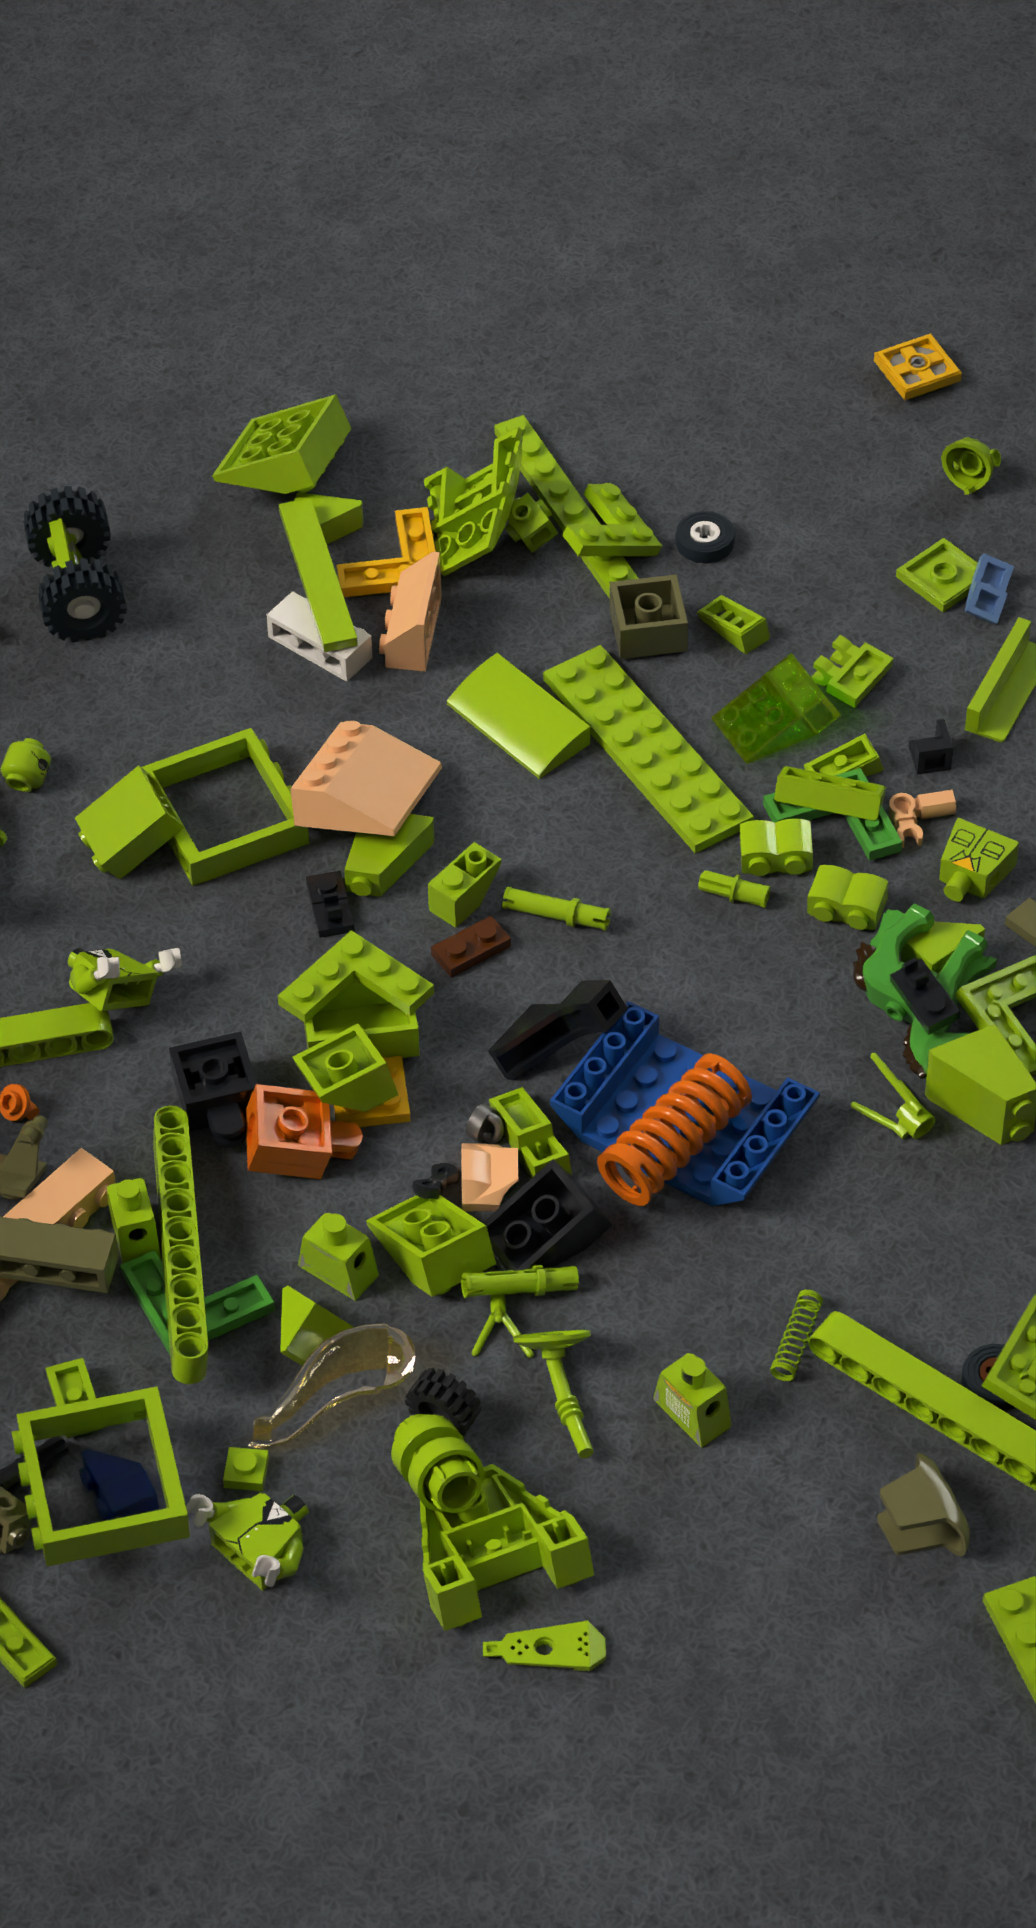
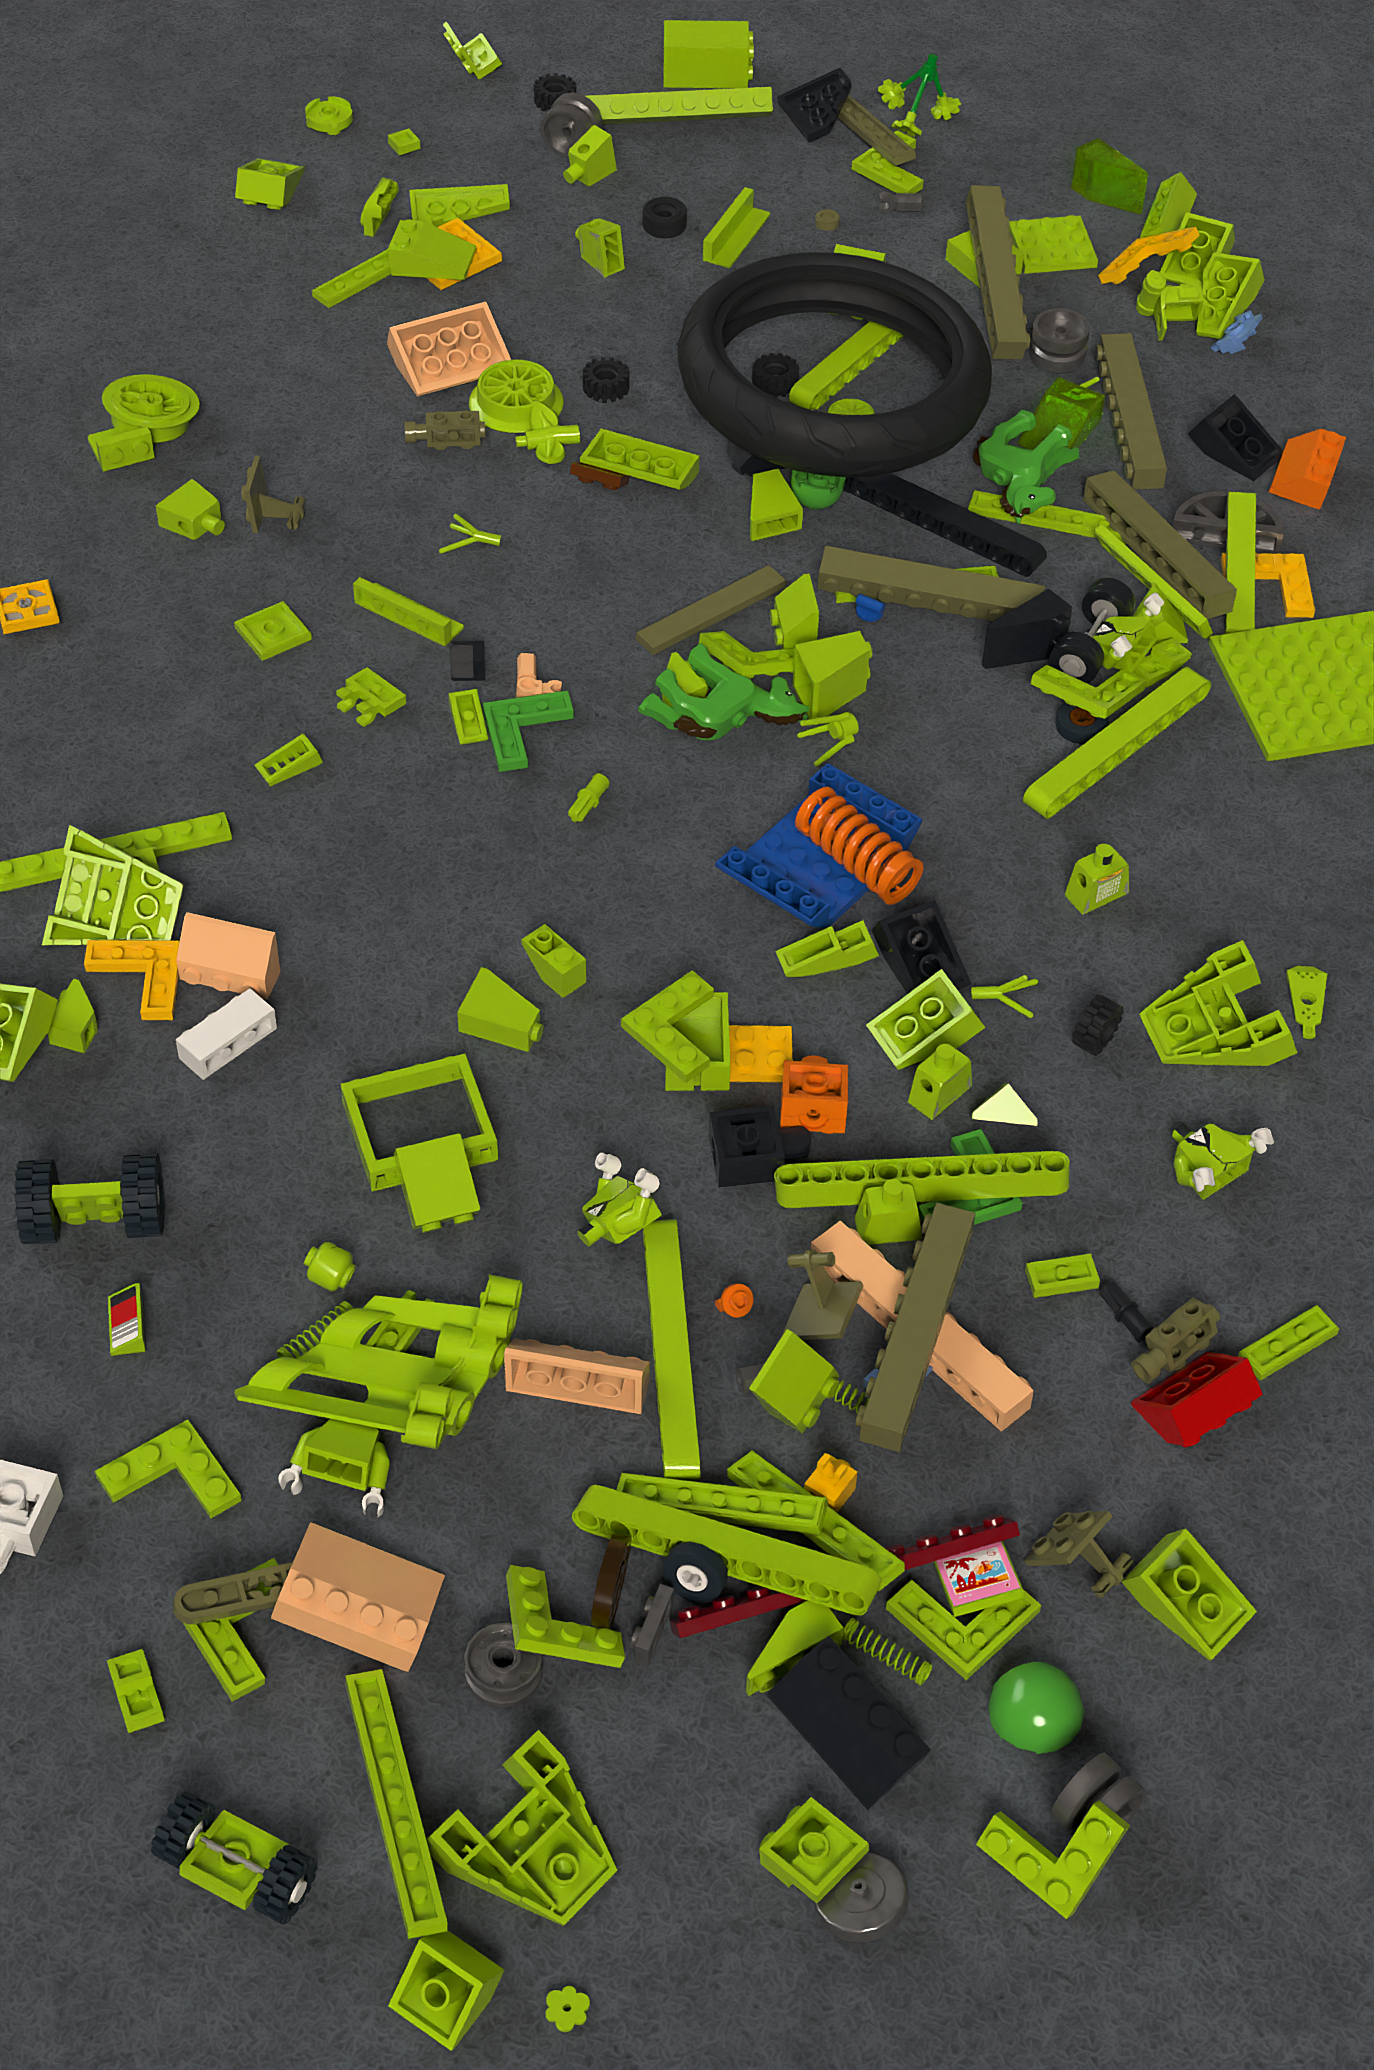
camera: 85 degrees left, 0 degrees up
(113, 1534) = (1165, 1197): lime window -> none
(119, 1485) = (1160, 1247): clear blue slope -> none
(246, 1469) = (1136, 1168): lime plate -> none
(318, 575) = (164, 1014): lime tile -> none
(330, 904) = (545, 1060): black plate -> none
(344, 1353) = (1062, 1061): clear yellow animal -> none
(347, 1071) = (764, 1041): lime slope -> none
(362, 782) = (434, 1008): light nougat slope -> none
(437, 1463) = (1177, 1015): lime piece -> none
(442, 1175) = (872, 1018): black piece -> none
(471, 946) = (613, 971): reddish brown plate -> none
(481, 1123) = (811, 978): flat silver tile -> none
(486, 1175) = (860, 983): light nougat slope -> none
(519, 716) = (360, 909): lime slope -> none
(534, 1280) = (971, 950): lime pin -> none
(548, 1027) = (725, 922): black arch -> none
(553, 1349) = (1045, 956): lime dish -> none
(556, 908) = (591, 901): lime pin -> none
(623, 534) = (172, 809): lime plate -> none
(648, 616) = (278, 805): olive brick -> none
(648, 748) = (414, 834): lime plate -> none
(705, 550) = (172, 767): black bush -> none
(776, 712) = (404, 744): clear neon green slope -> none
(776, 847) = (553, 766): lime brick -> none
(805, 1302) = (1005, 807): lime piece -> none
(829, 793) = (509, 721): lime slope -> none
(847, 897) = (616, 731): lime brick -> none
(923, 1512) = (1201, 770): olive piece -> none
(924, 995) = (747, 687): black plate -> none
(972, 463) = (163, 588): lime helmet -> none
(975, 860) = (594, 655): lime torso -> none
(988, 589) = (311, 607): medium blue slope -> none

